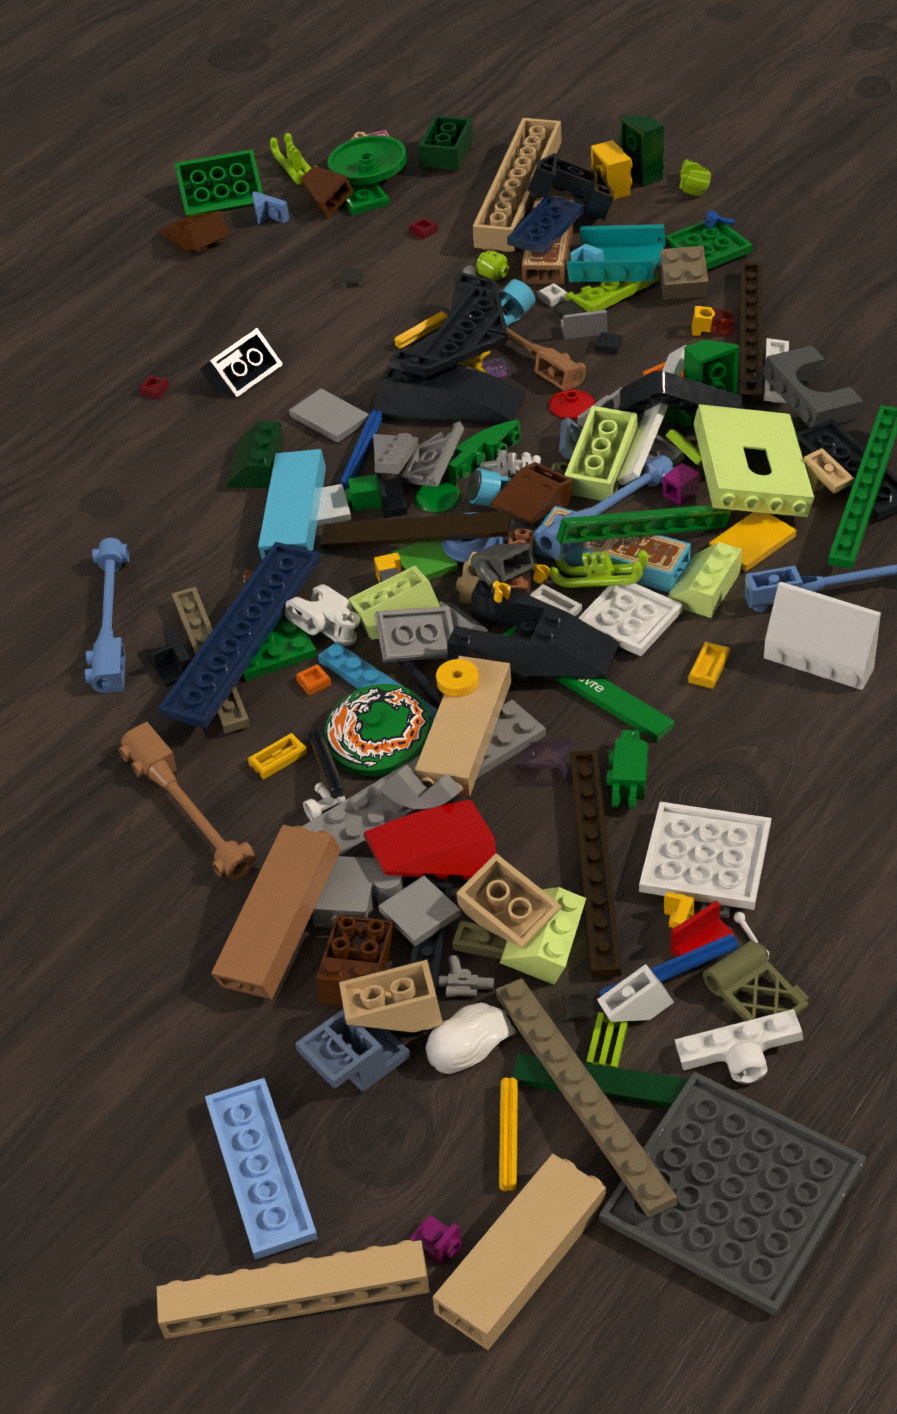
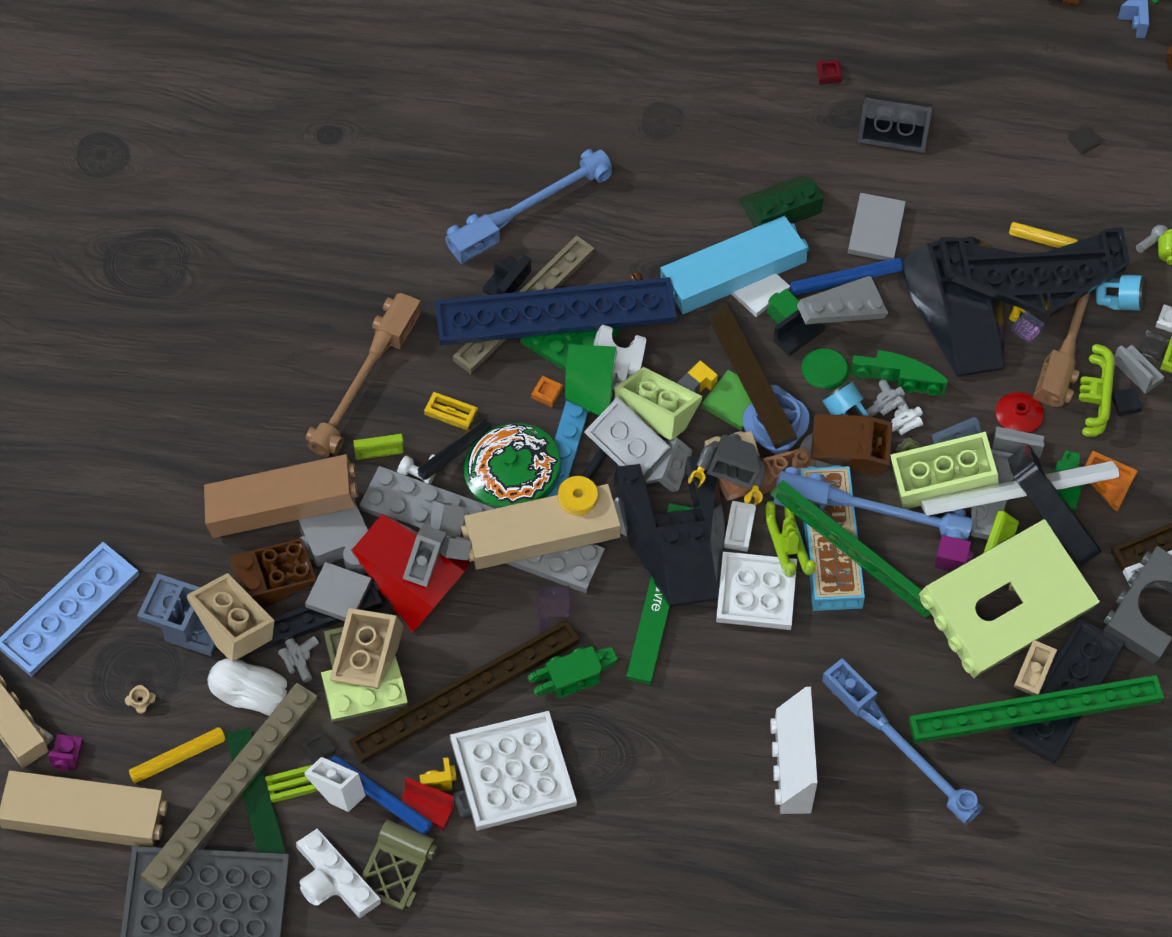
camera: 55 degrees right, 15 degrees up
(276, 817) = (378, 446): none -> lime tile
(336, 629) = (590, 376): none -> green slope
(417, 1133) = (137, 692): none -> tan plate
(432, 458) = (858, 338): light grey wing -> none
(440, 809) = (424, 555): none -> light grey slope
(591, 347) = (1098, 390): none -> lime piece
(707, 579) = (837, 632): yellowish green slope -> none
(709, 665) = (737, 679): yellow tile -> none
(712, 364) = (1101, 508): green slope -> none
(739, 917) = (465, 823): white hinge -> none
(757, 537) = (916, 646): yellow tile -> none

